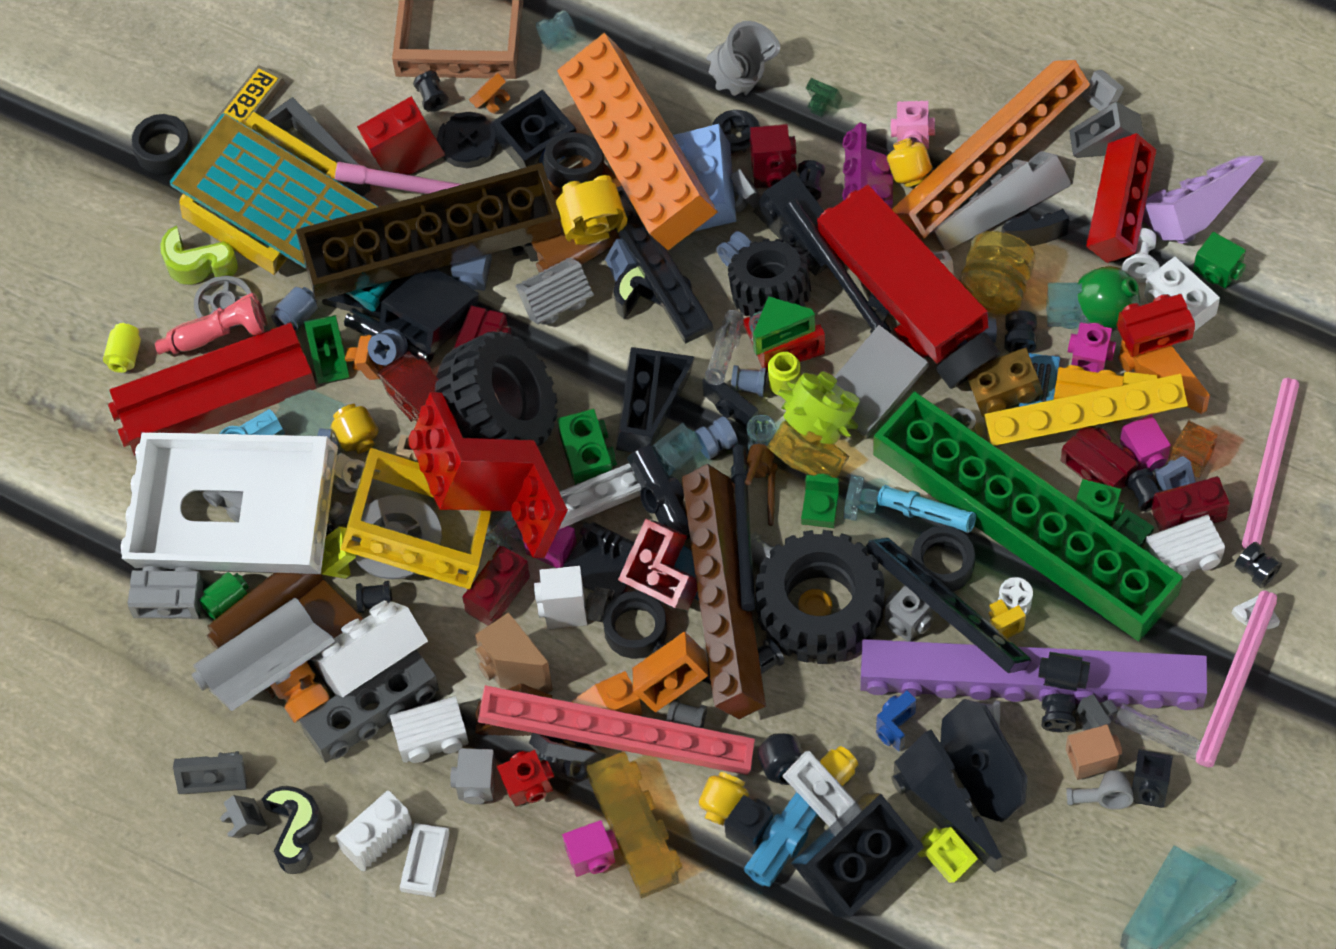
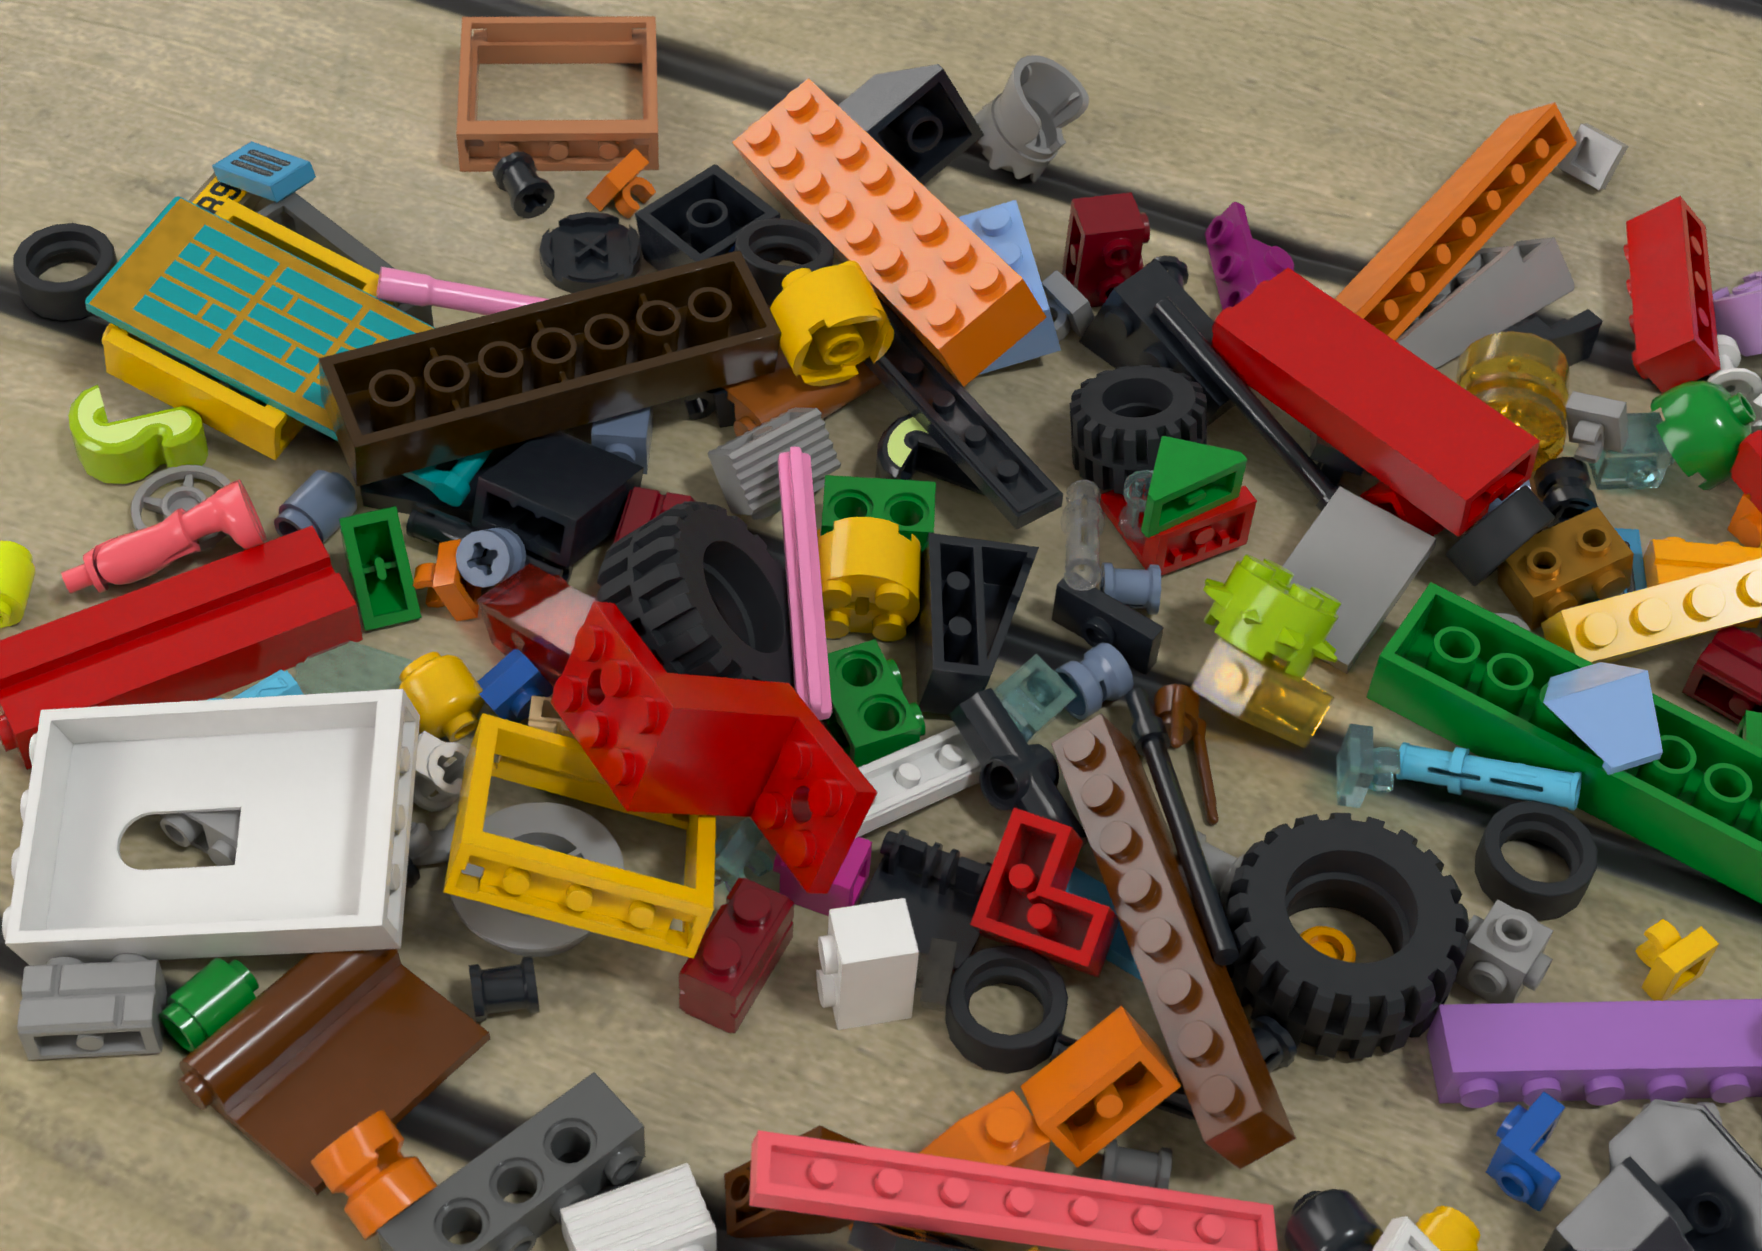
camera: 15 degrees left, 10 degrees down
(261, 655) = (292, 1110): light grey door -> none
(277, 82) = (264, 171): none -> dark azure tile
(335, 560) = (429, 913): neon yellow bracket -> none
(368, 647) = (503, 1080): white brick -> none
(393, 424) = (511, 685): none -> blue bracket
(401, 139) = (484, 234): red slope -> none
(511, 656) = (790, 1076): medium nougat slope -> none
(555, 375) = (804, 582): none -> bright pink axle
(556, 30) = (718, 96): clear light blue wheel -> none
(593, 371) = (869, 578): none -> yellow brick
(611, 323) = (899, 501): none -> green brick
(619, 259) = (875, 412): sand blue tile -> none
(664, 65) = (915, 118): none -> black slope
(728, 249) = (1055, 393): sand blue wheel -> none
(742, 122) = (1048, 219): black gear -> none
(760, 430) = (1165, 663): clear light blue bush -> none
(781, 369) = (1188, 564): neon yellow brick -> none
(820, 501) = (1295, 773): green bracket -> none
(821, 96) = (1161, 172): clear green tile -> none
(909, 162) = (1324, 254): yellow head -> none
(913, 122) = (1316, 206): bright pink brick -> none
(948, 605) = (1590, 935): black tile -> none
(986, 480) = (1610, 712): none -> light blue slope
(1016, 589) = (1686, 904): white wheel -> none
(1038, 294) = (1596, 425): none -> light grey tile
(1091, 347) = (1692, 502): dark pink brick -> none
(1106, 126) = (1600, 212): dark grey slope -> none

